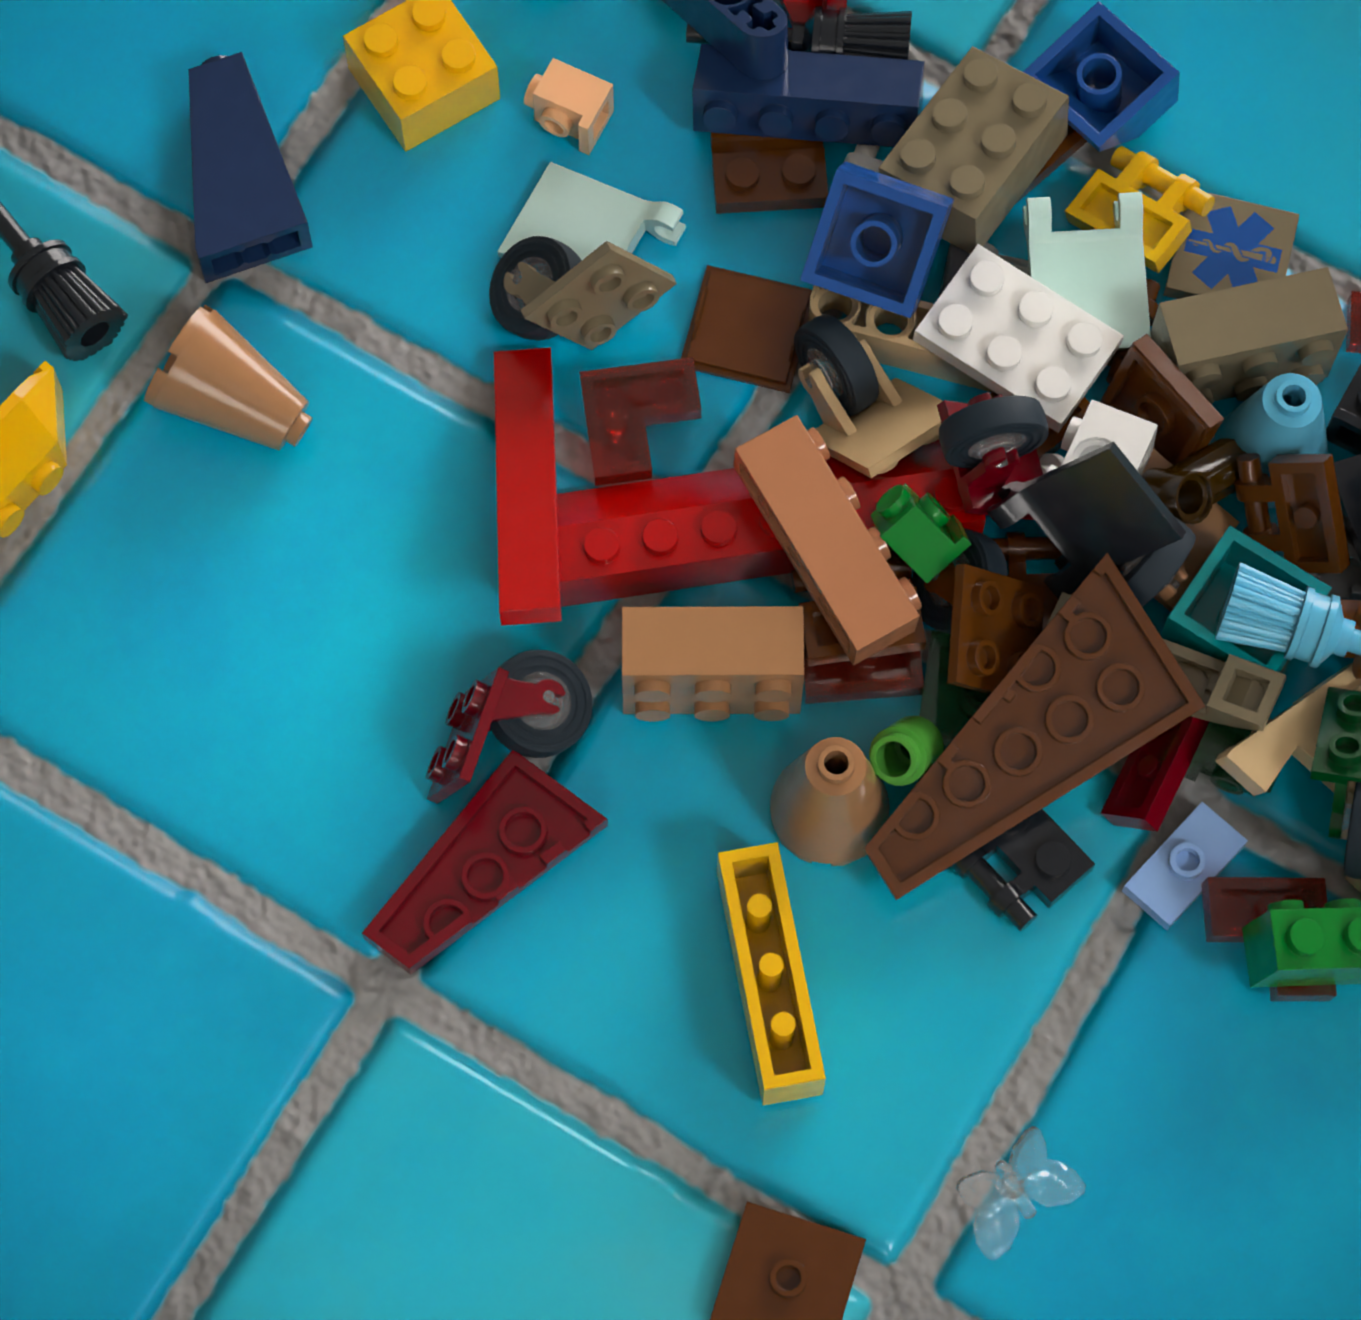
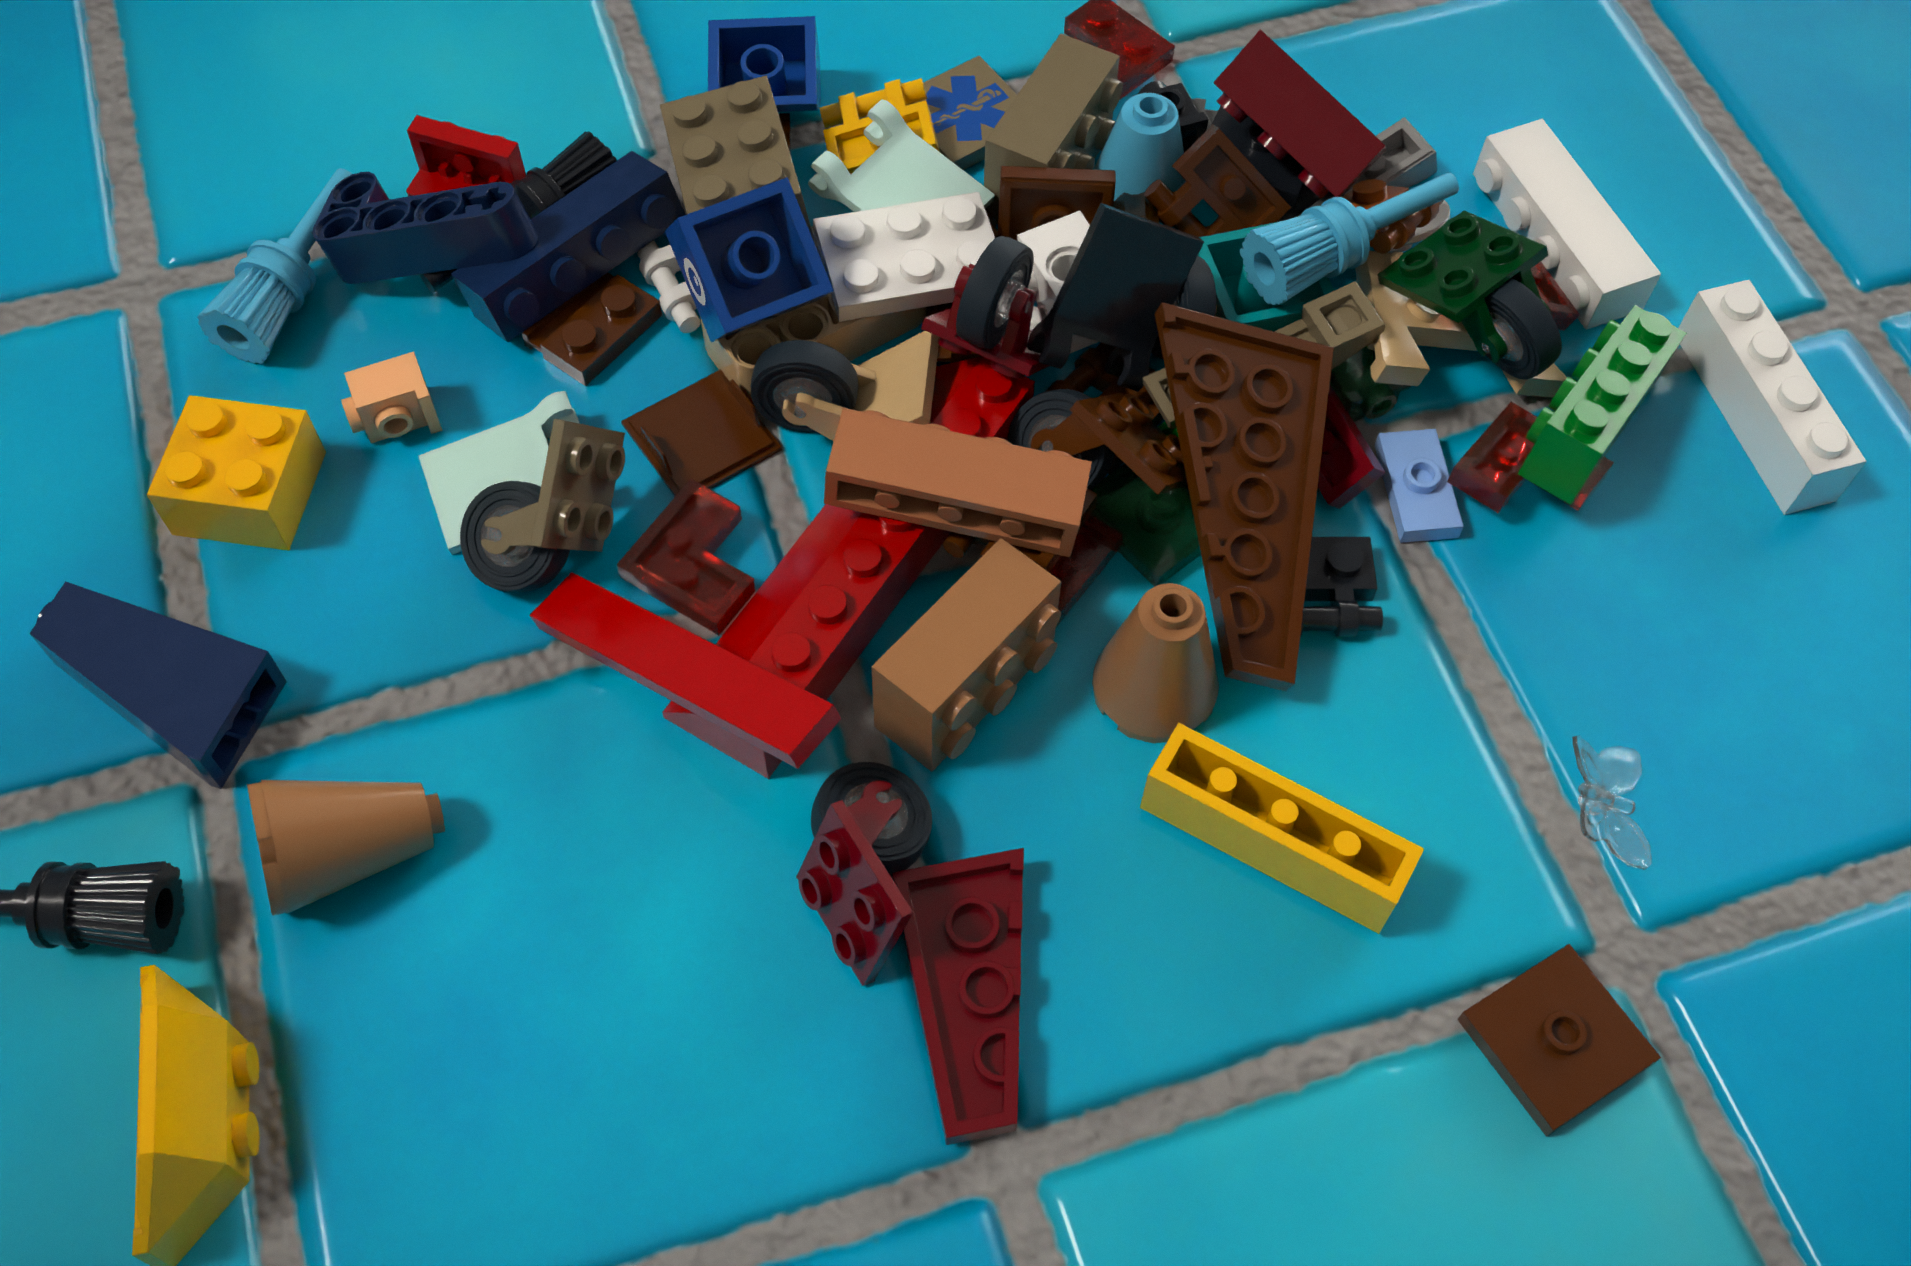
camera: 50 degrees left, 10 degrees down
(905, 750) = (1187, 566): bright green brick -> none
(919, 530) = (1012, 415): green brick -> none

